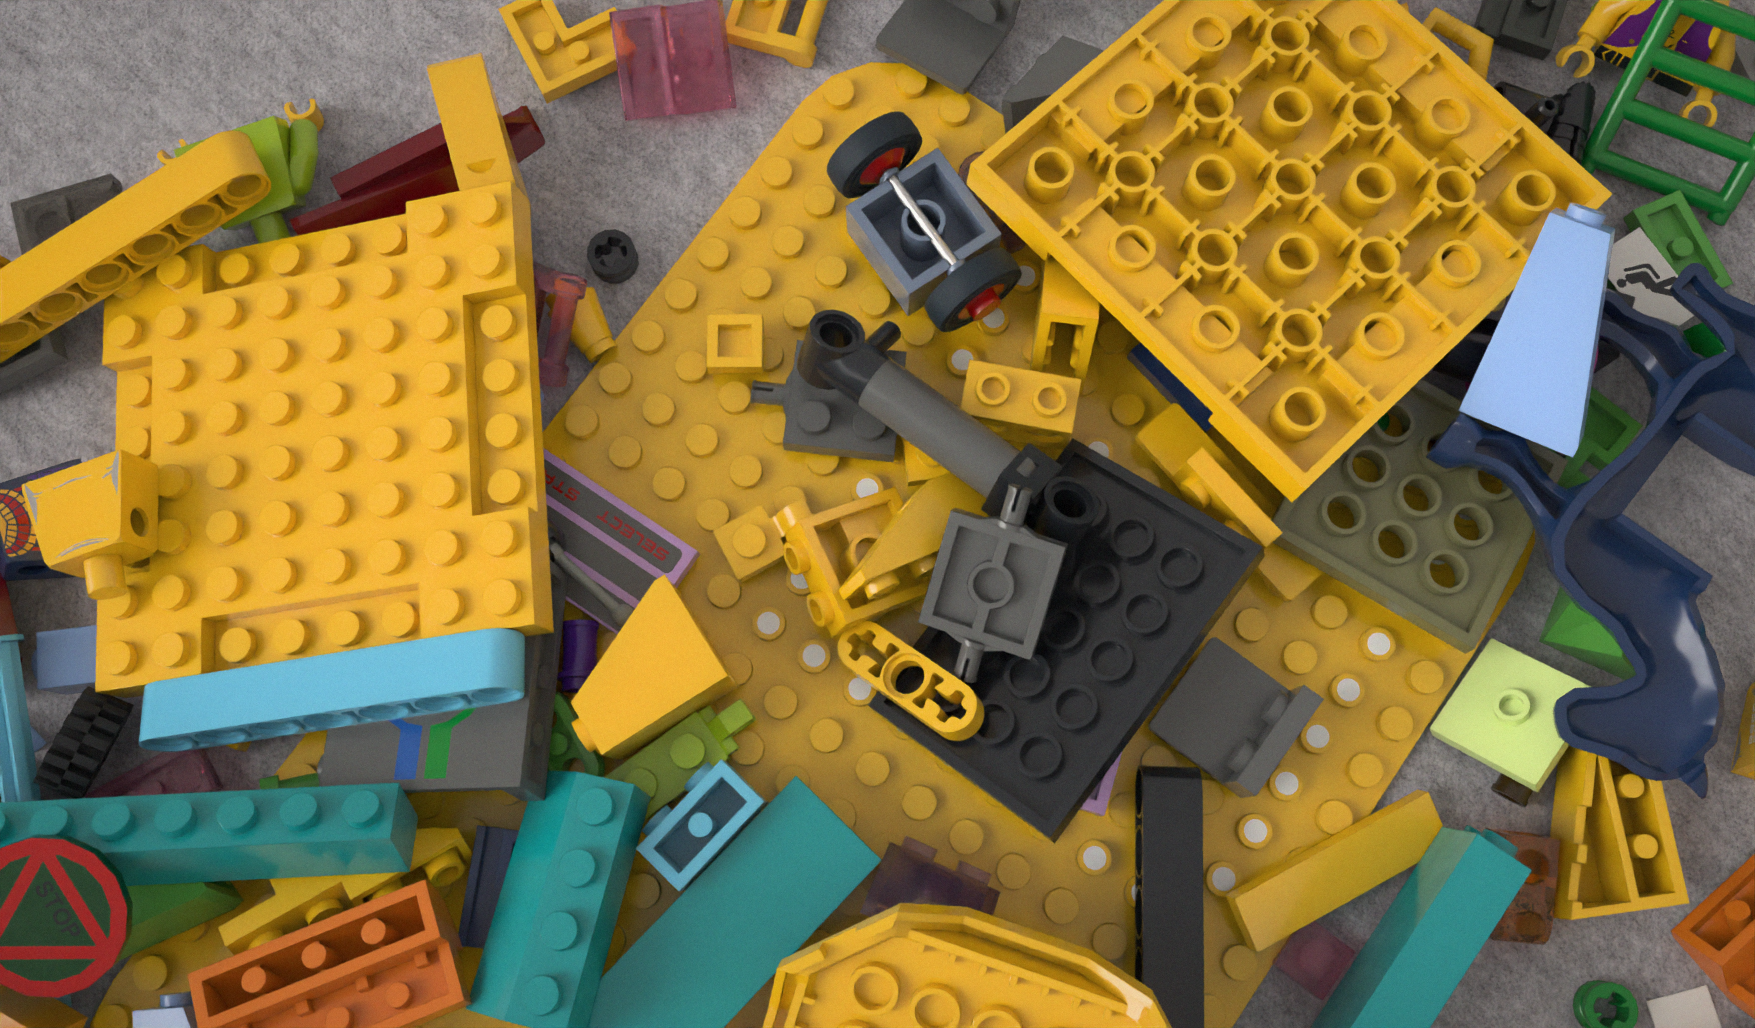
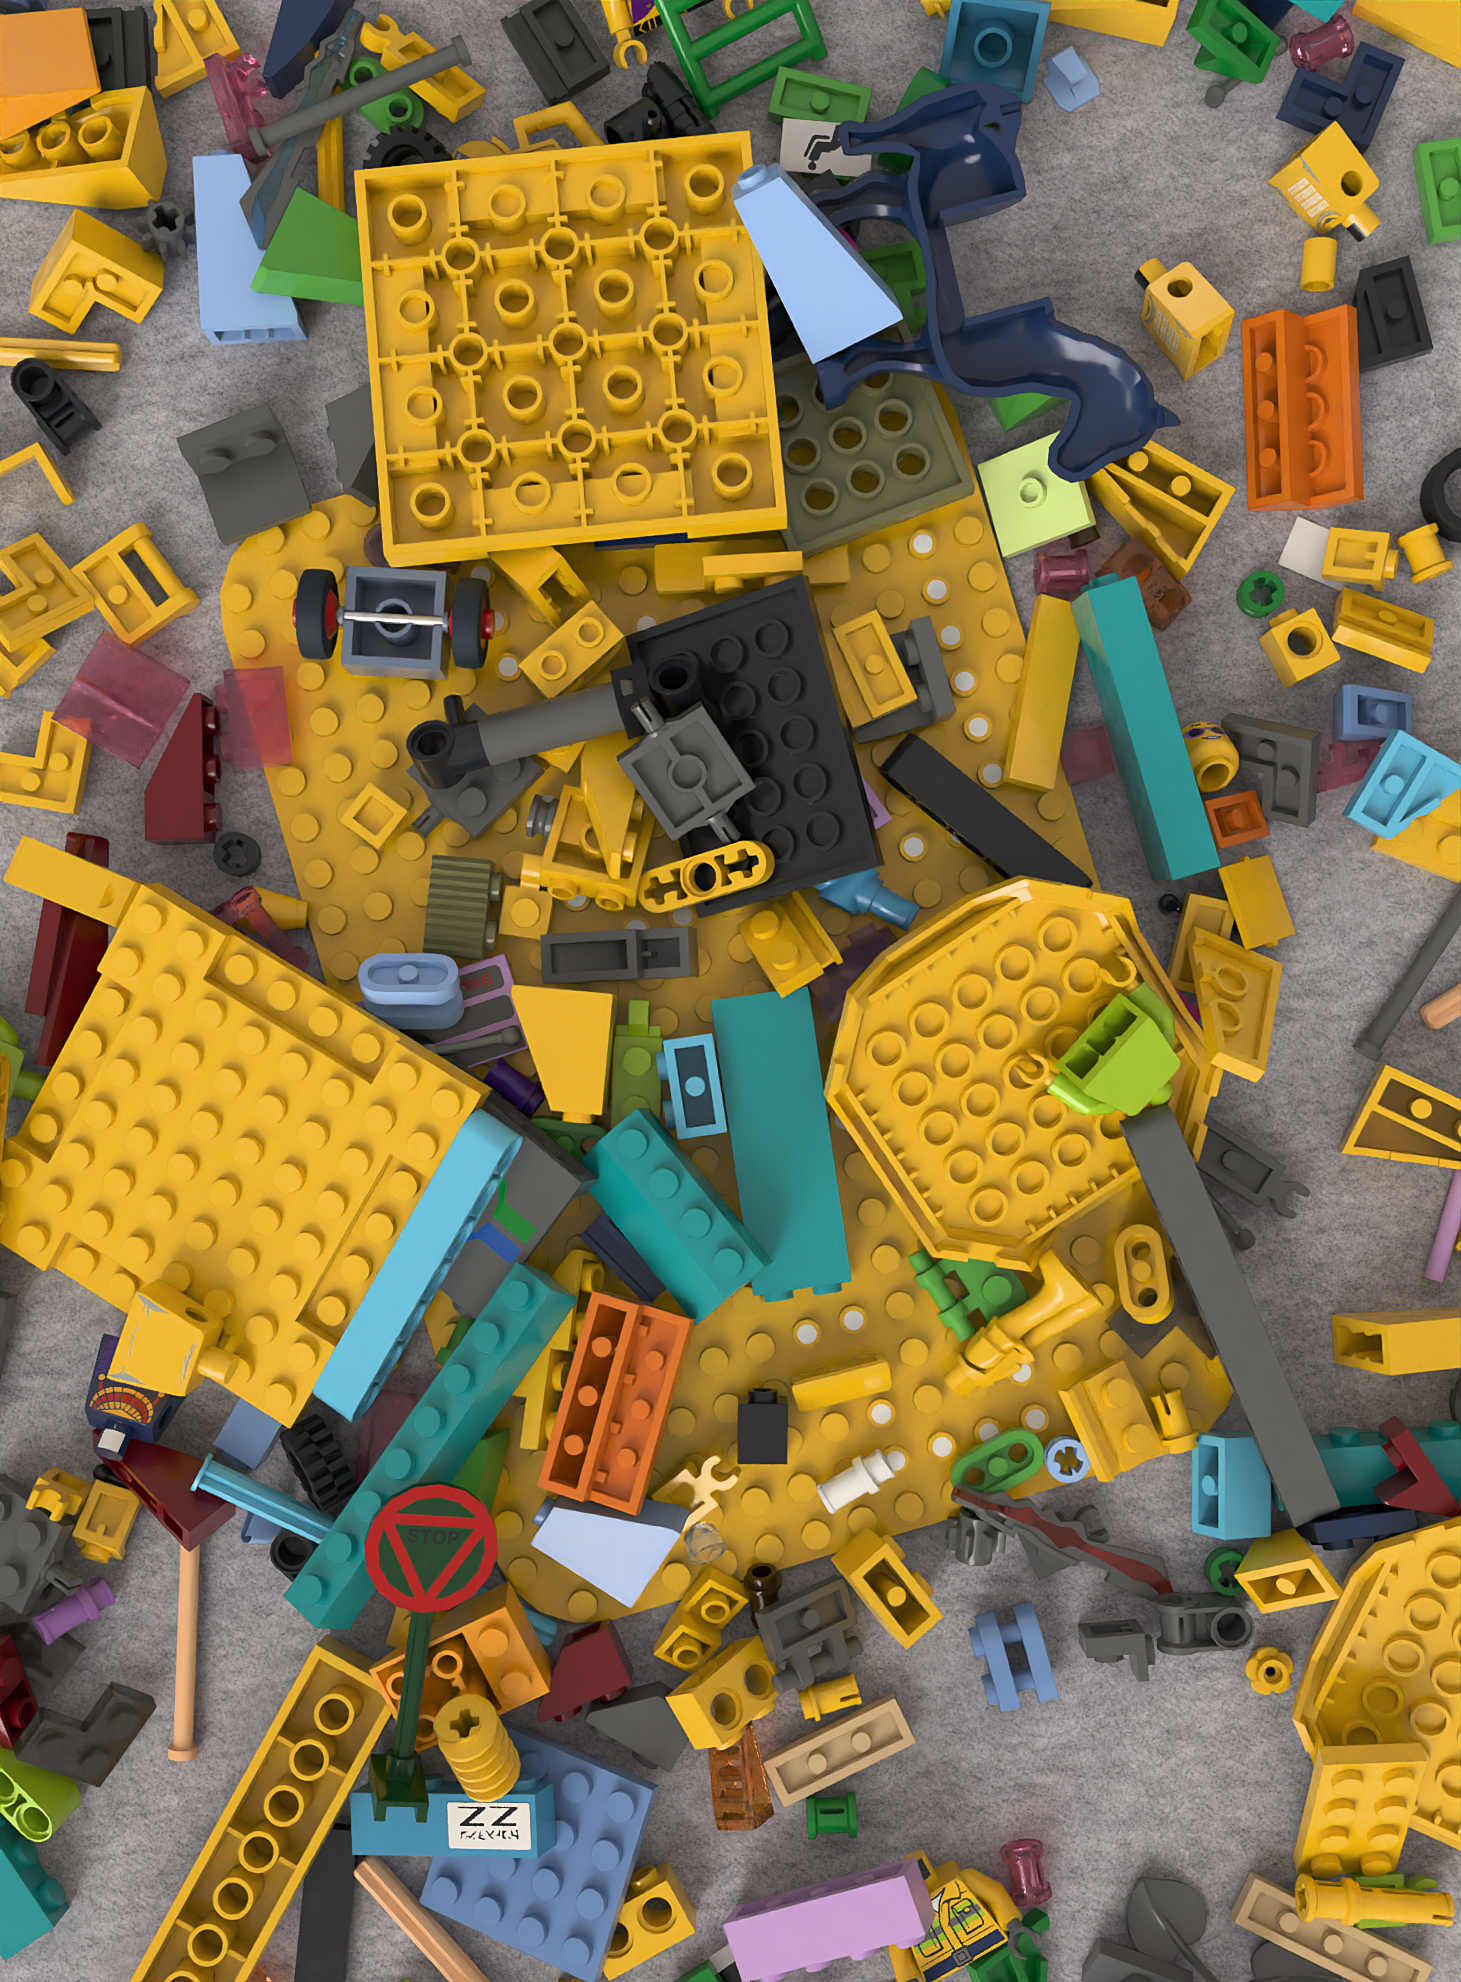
camera: 50 degrees left, 10 degrees up
(595, 491) = (412, 990): none -> light blue brick
(637, 165) = (182, 788): none -> dark red slope
(710, 480) = (461, 907): none -> olive brick
(744, 180) = (255, 718): none -> clear pink bracket
(776, 658) = (619, 955): none -> dark grey slope
(848, 487) = (541, 817): none -> dark grey bush
(908, 810) = (789, 944): none -> yellow plate
(1015, 848) = (866, 894): none -> dark azure pin
(1223, 682) = (867, 670): none -> yellow plate
(1462, 794) = (1060, 571): none -> clear pink bush

